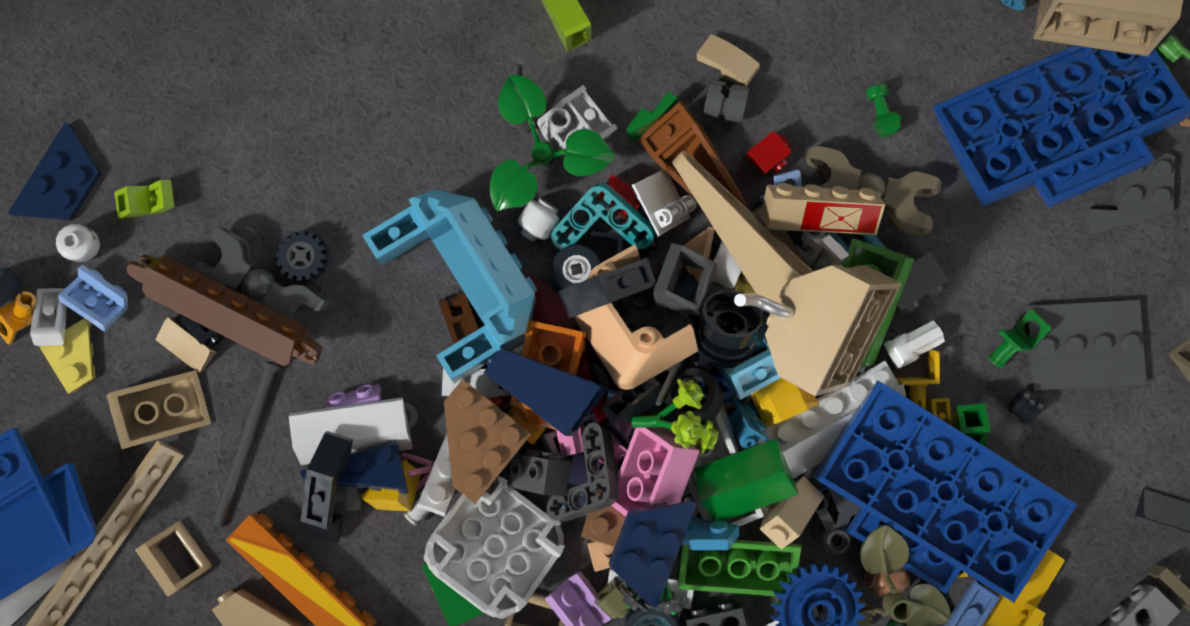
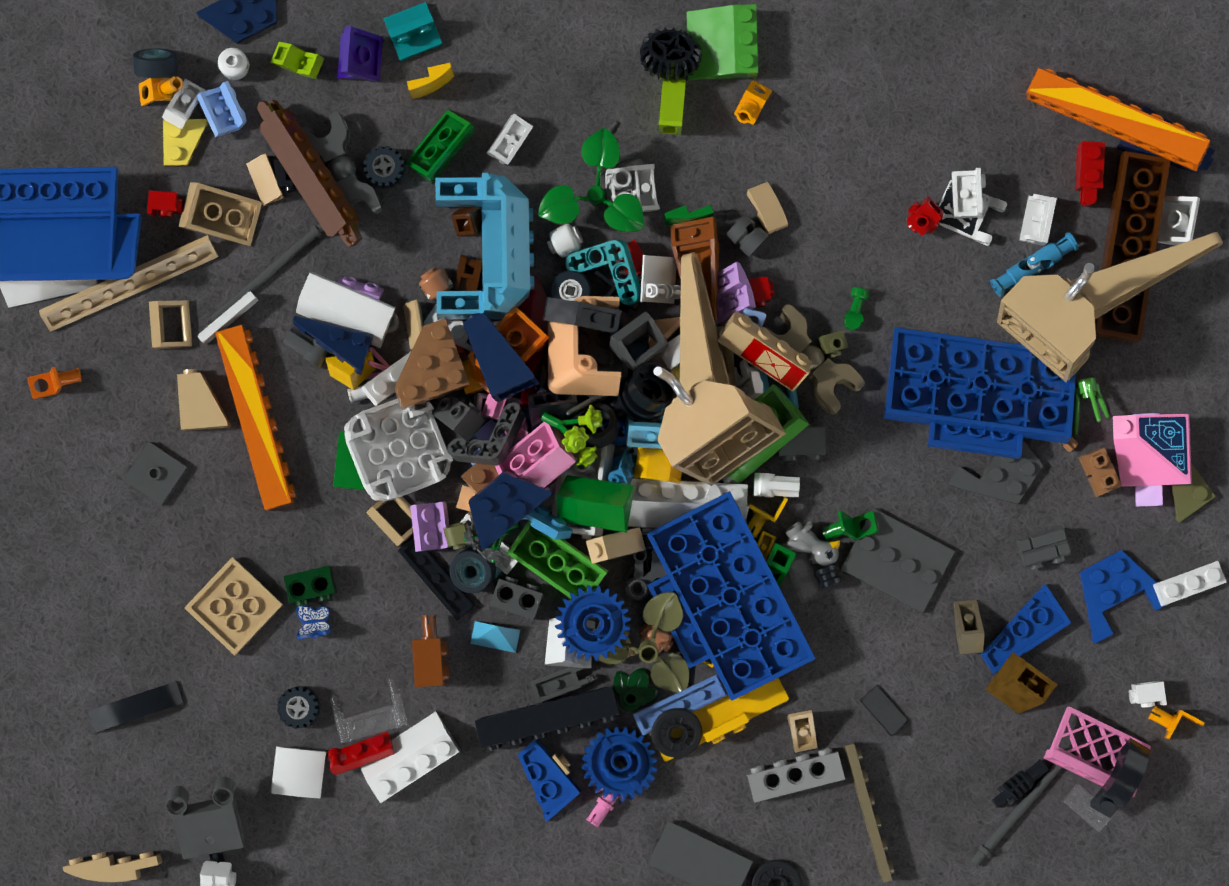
camera: 30 degrees right, 0 degrees up
(91, 434) = (164, 203): none -> red brick
(206, 154) = (360, 55): none -> dark purple bracket
(231, 514) = (228, 317): none -> white tile
(249, 98) = (413, 31): none -> teal bracket
(302, 128) = (438, 77): none -> yellow slope
(321, 485) = (289, 352): black slope -> none
(349, 199) = (440, 146): none -> green slope
(417, 149) = (509, 139): none -> white hinge
(424, 261) = (467, 221): none -> reddish brown slope
(428, 344) = (434, 281): none -> nougat head
(430, 399) = (413, 320): none -> tan slope
(749, 168) = (733, 293): none -> lavender slope
(883, 160) = (833, 344): none -> olive plate
(976, 383) = (804, 540): none -> light grey animal
(1100, 583) = (802, 731): none -> tan slope

